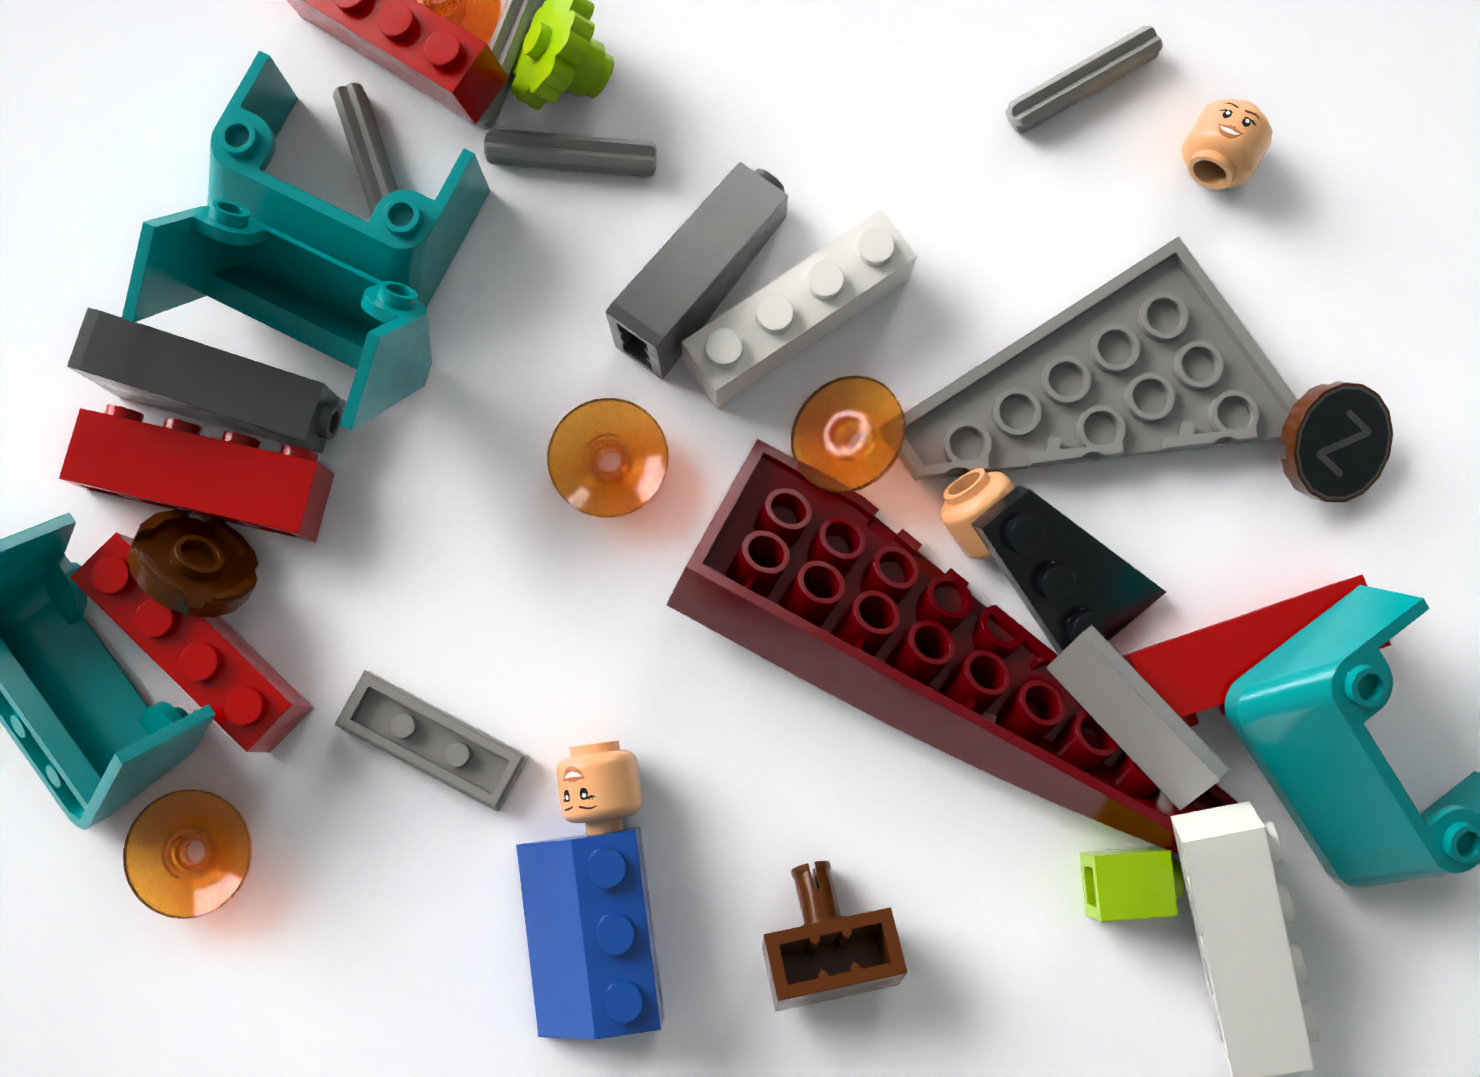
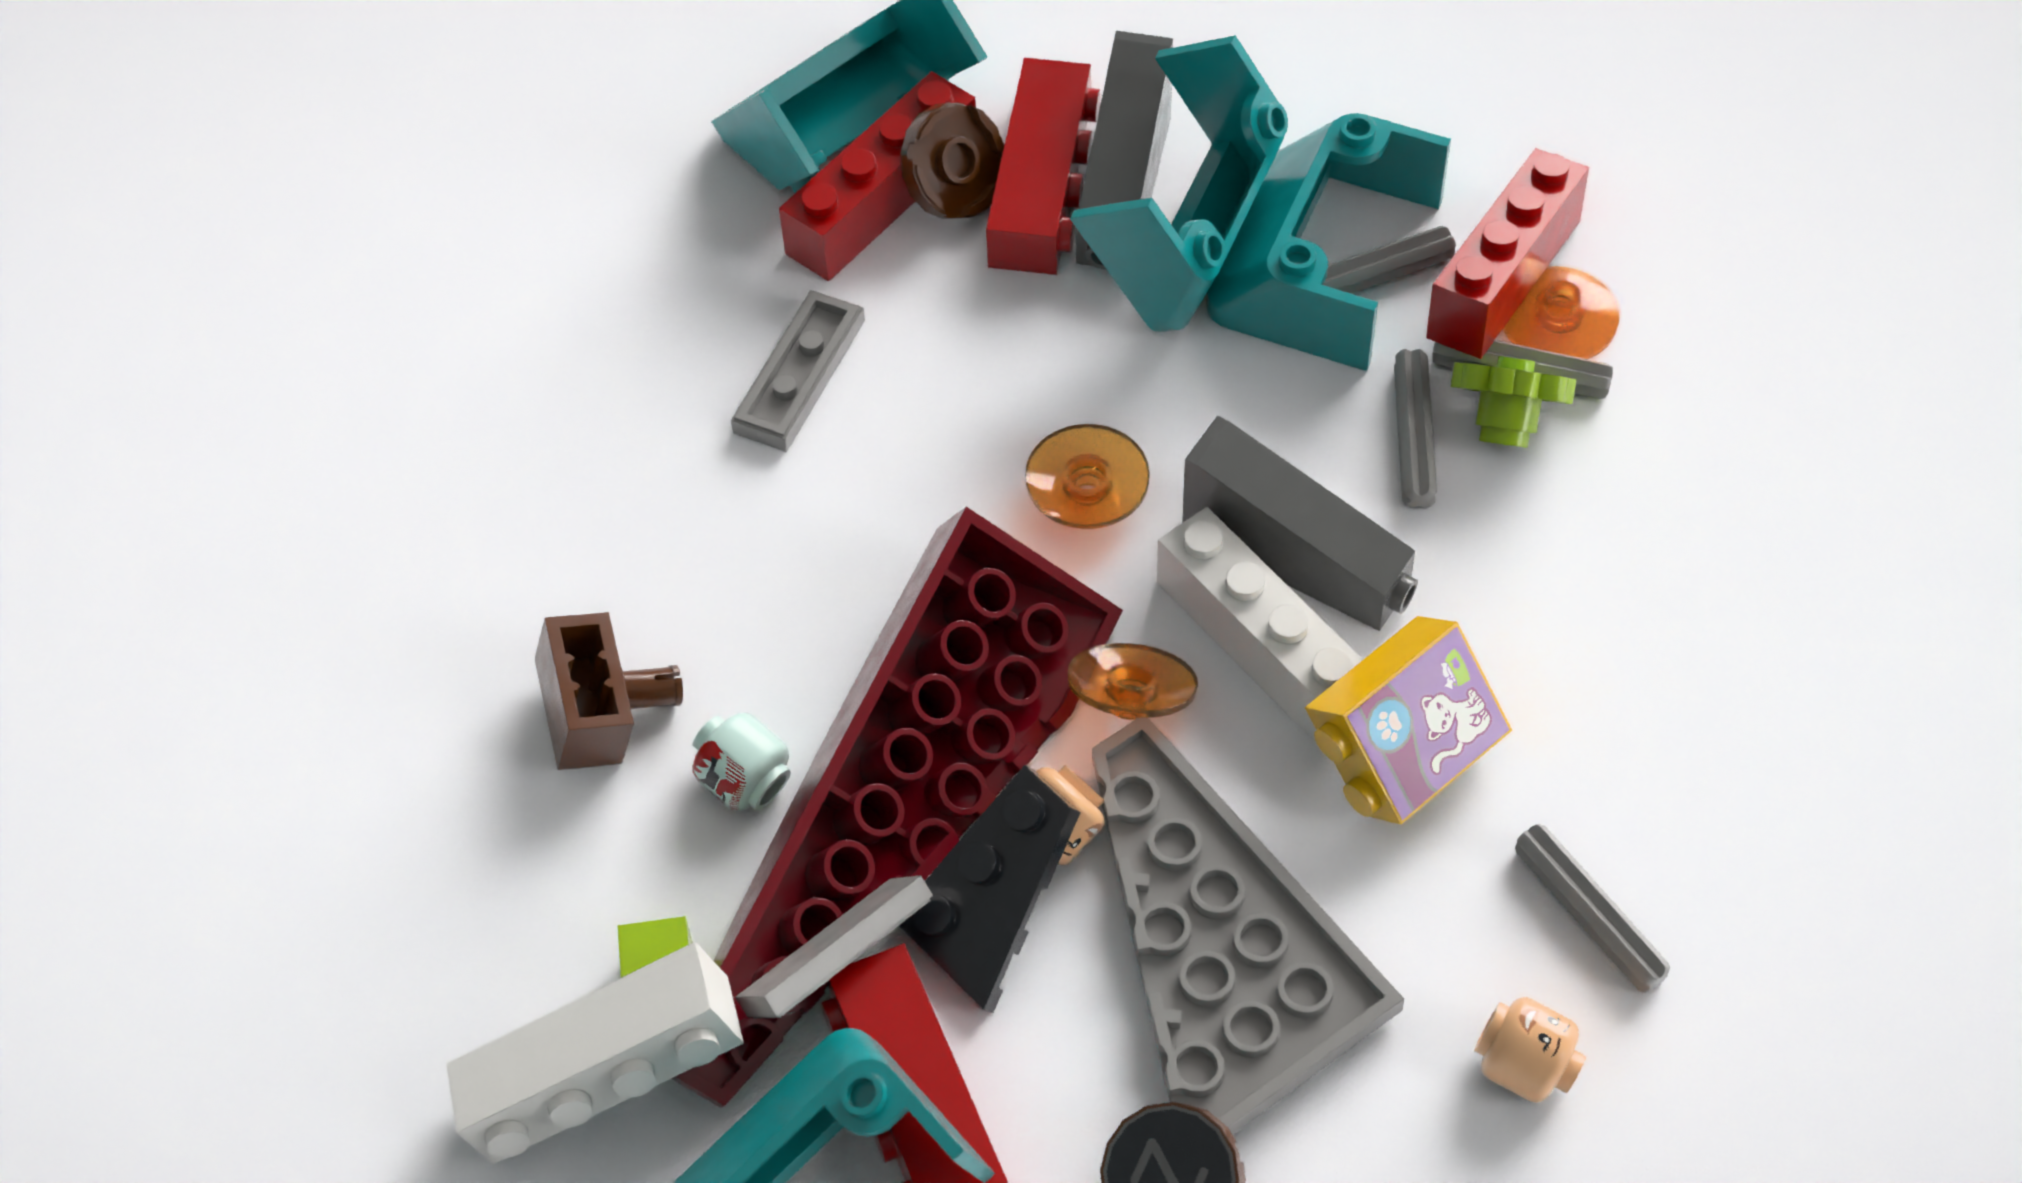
camera: 90 degrees right, 25 degrees down
(158, 857) = (689, 193): clear orange dish -> none
(590, 936) = (614, 512): blue slope -> none
(599, 786) = (754, 491): light nougat head -> none
(909, 804) = (740, 761): none -> light aqua head
(924, 191) = (1408, 719): none -> brick

